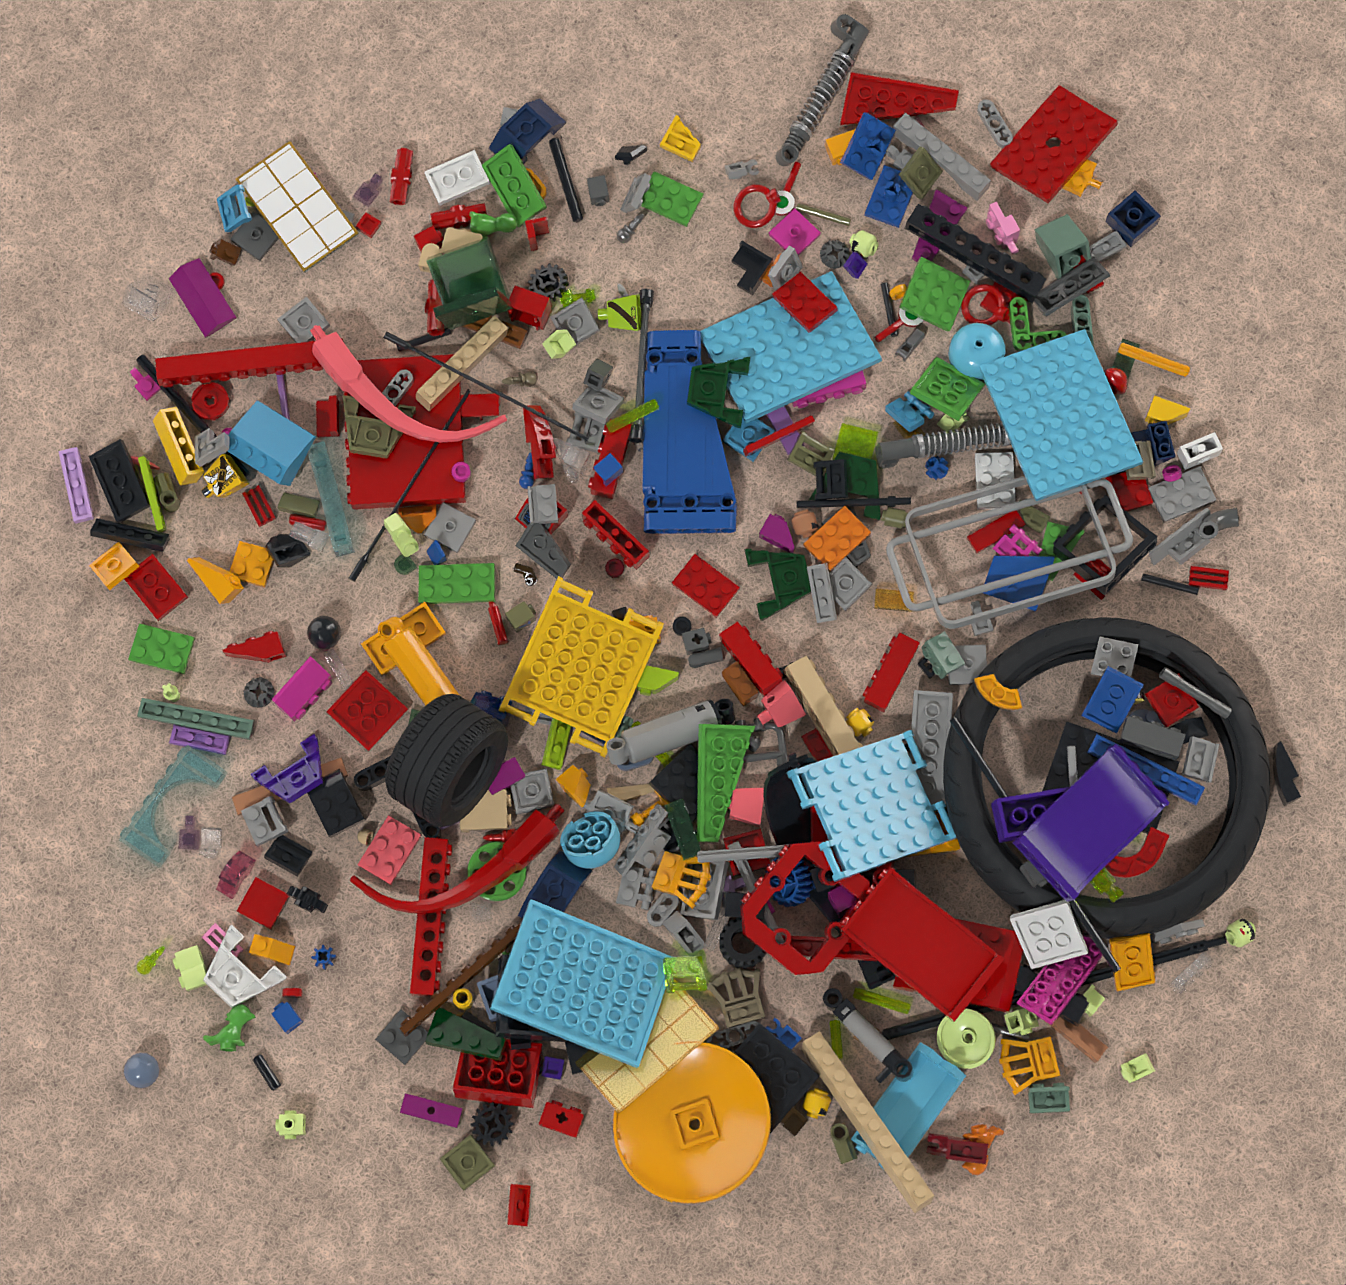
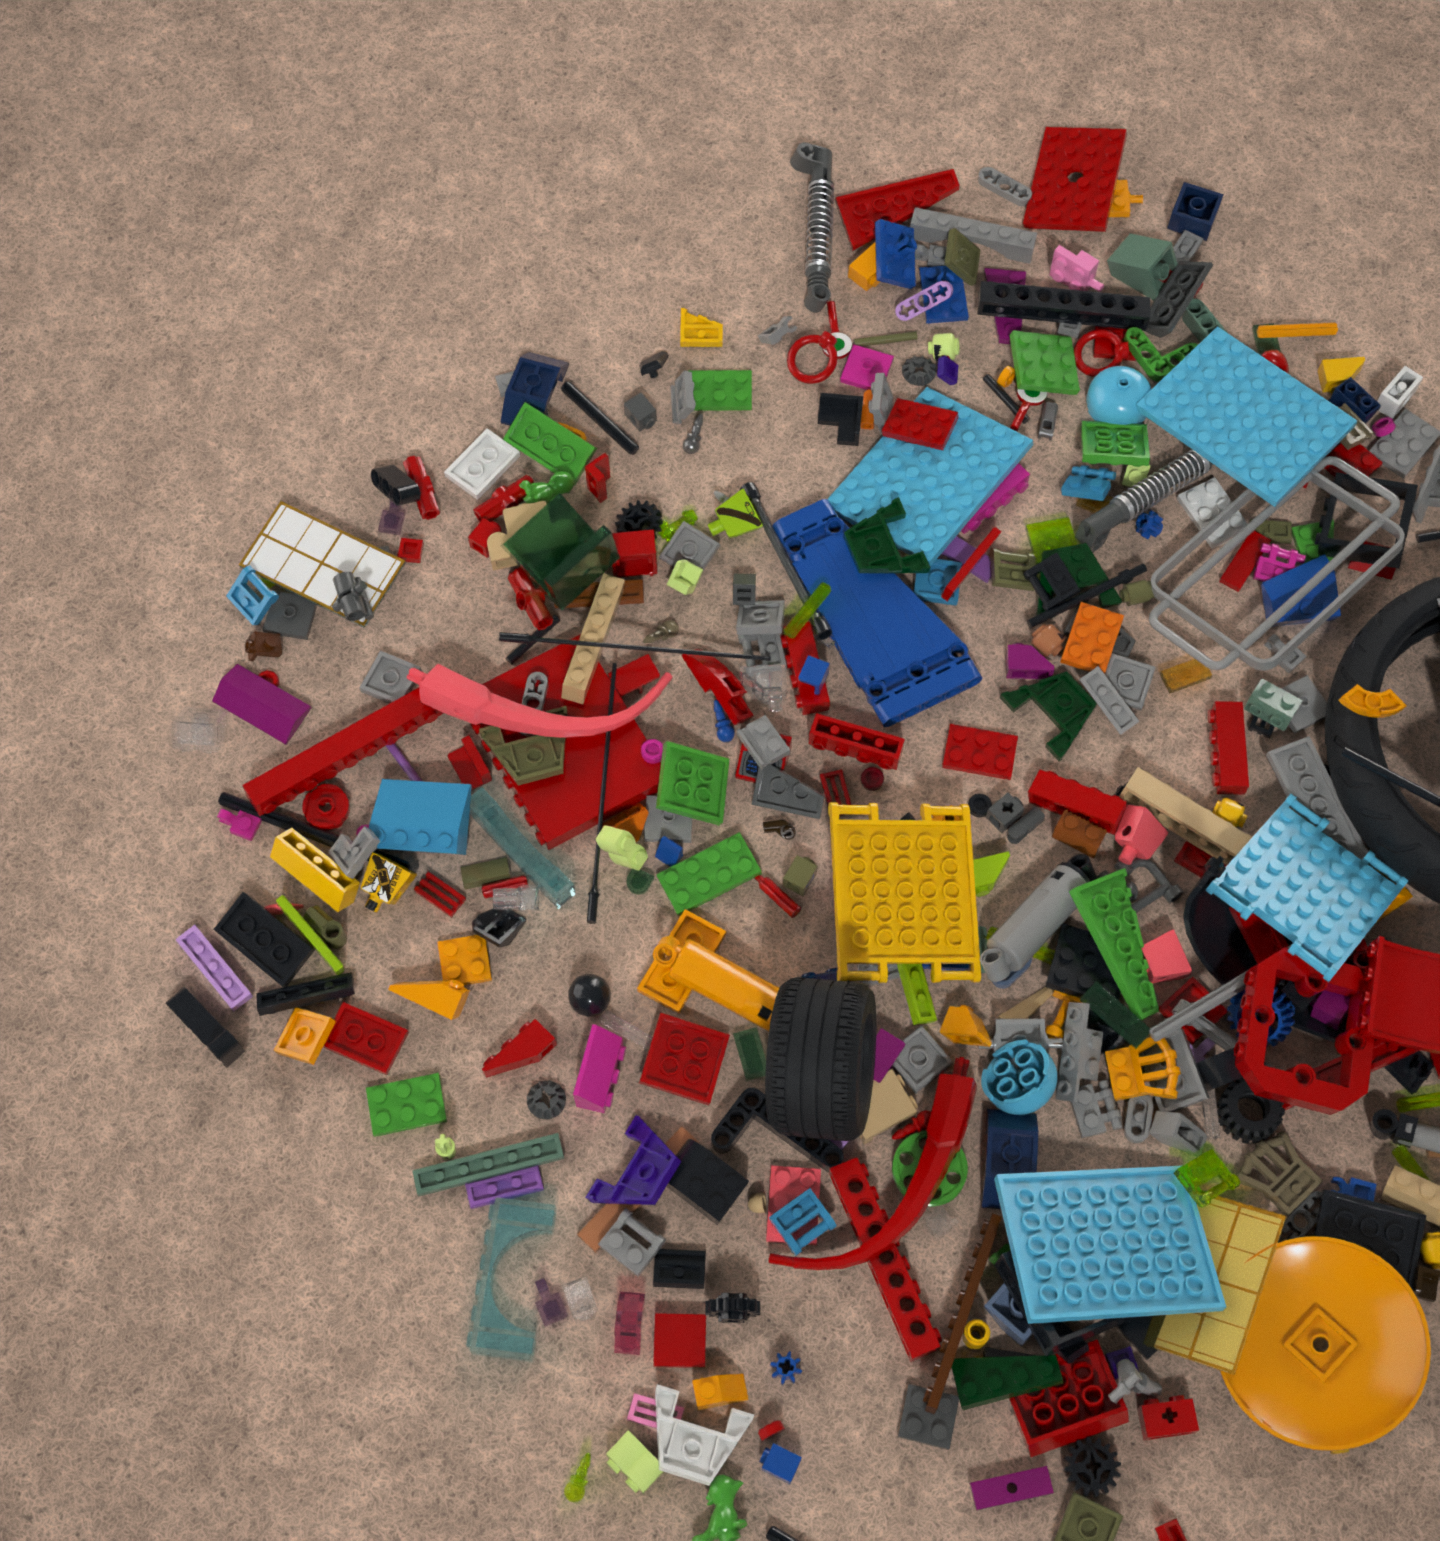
camera: 30 degrees left, 10 degrees down
(50, 526) = (205, 1027): none -> black beam
(303, 246) = (351, 597): none -> dark grey pin
(380, 167) = (395, 485): none -> black beam
(385, 858) = (796, 1215): none -> dark azure plate
(478, 510) = (692, 783): none -> bright green plate
(548, 1077) = (1132, 1380): none -> light grey pin
(578, 582) = (831, 775): none -> red tile
(860, 202) = (940, 298): none -> lavender beam

